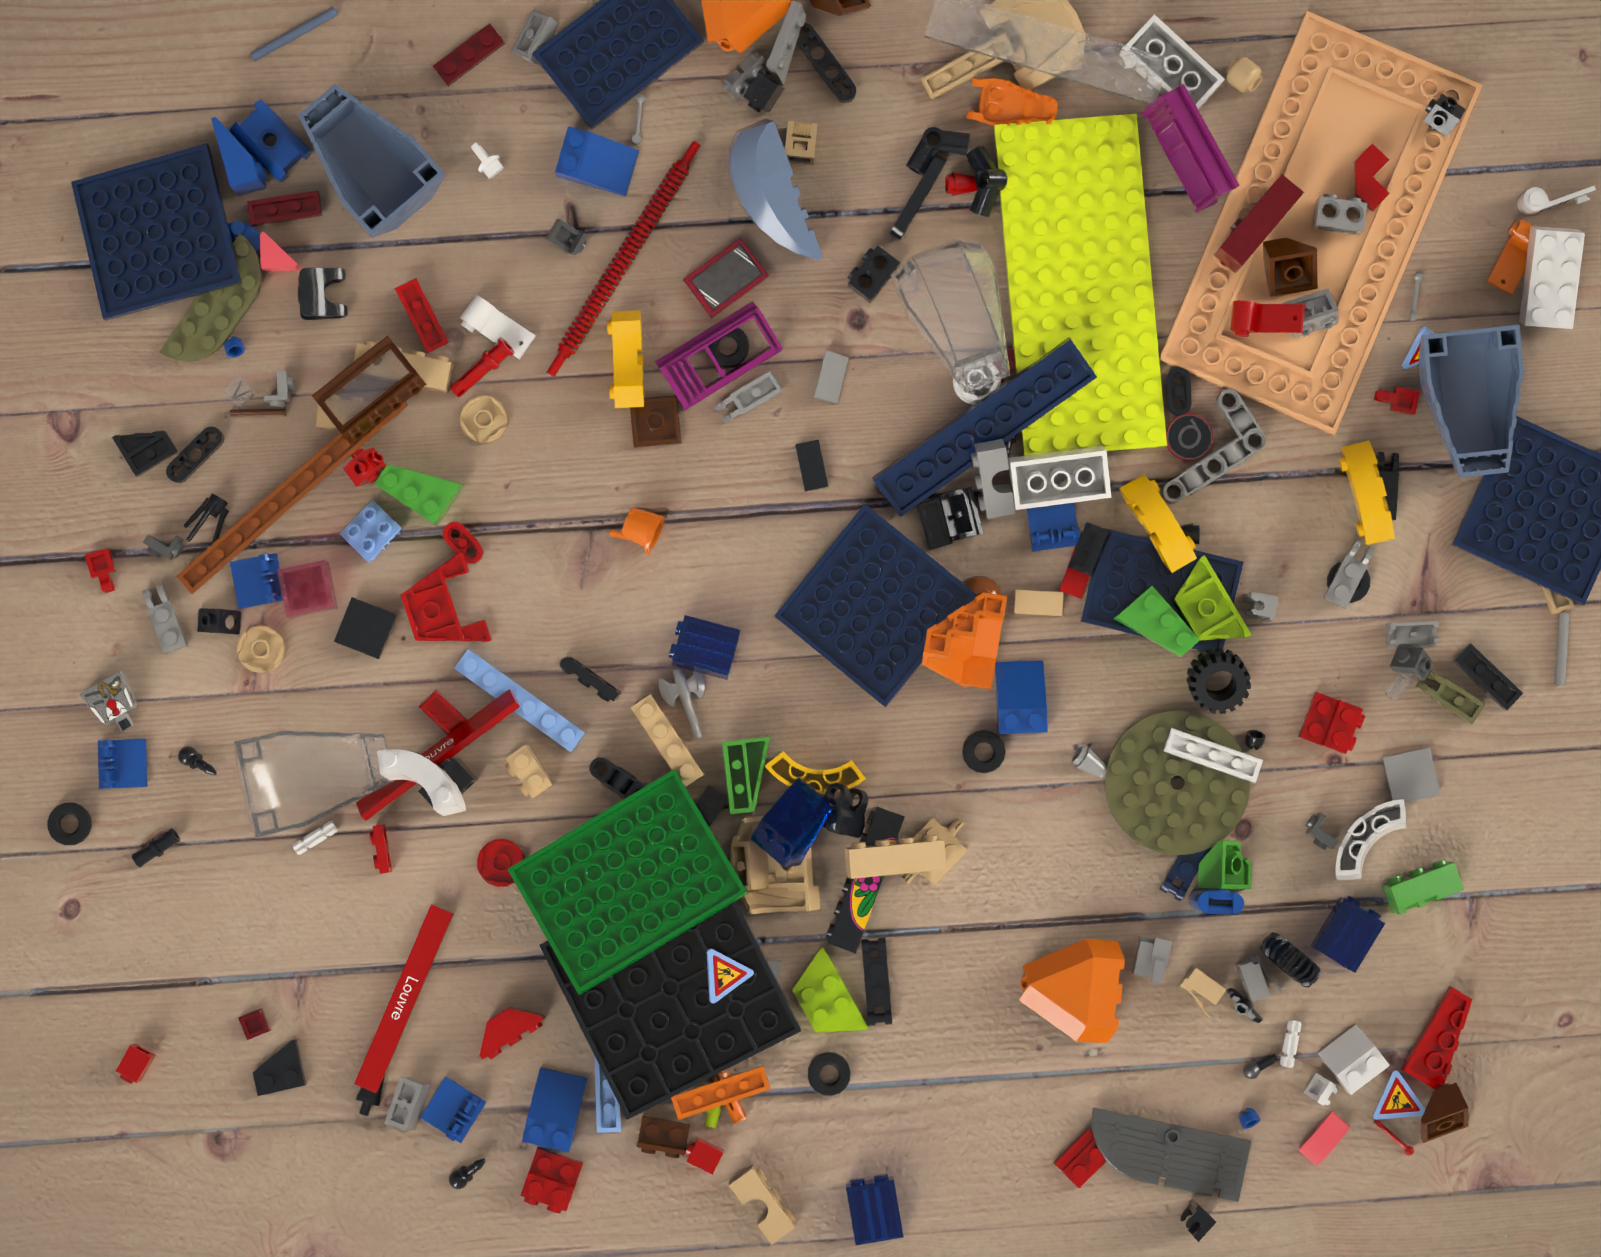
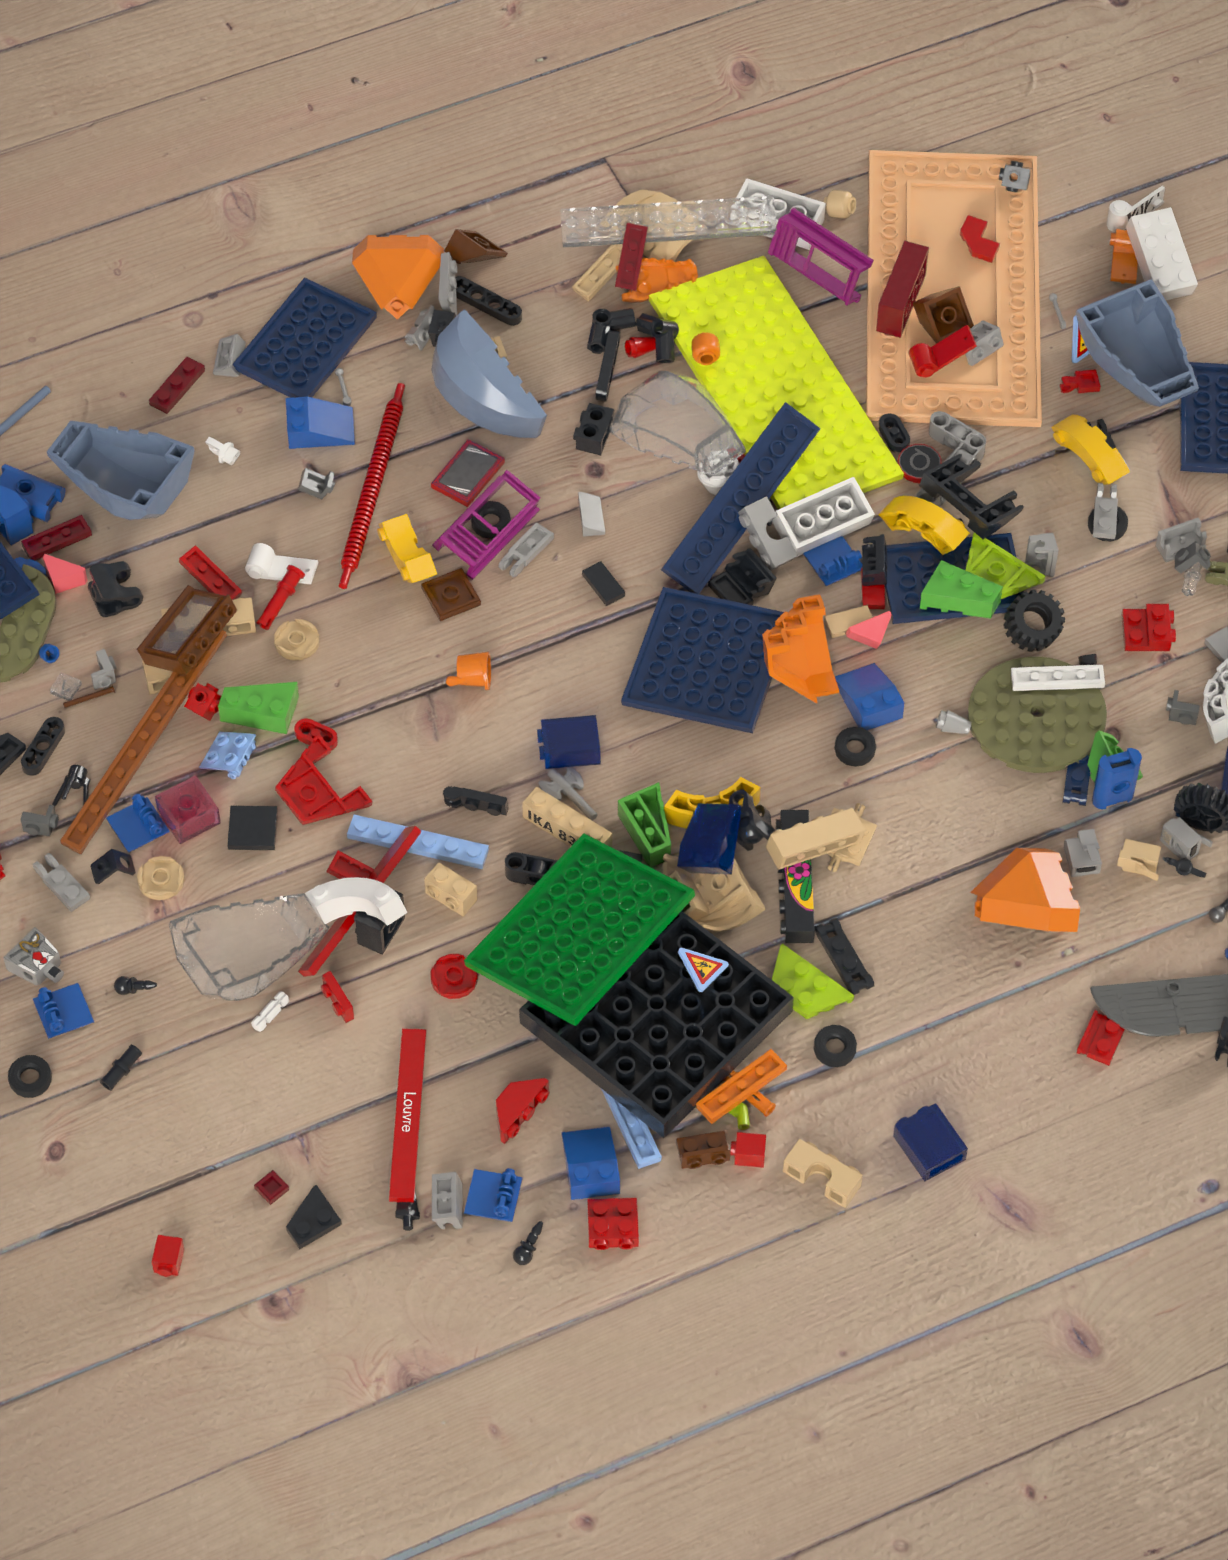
camera: 20 degrees left, 30 degrees down
(989, 80) = (631, 256): none -> dark red plate
(1021, 227) = (705, 348): none -> orange head
(1053, 628) = (870, 631): none -> coral slope
(1216, 544) = (983, 519): none -> black wedge
(1339, 221) = (966, 268): light grey brick -> none

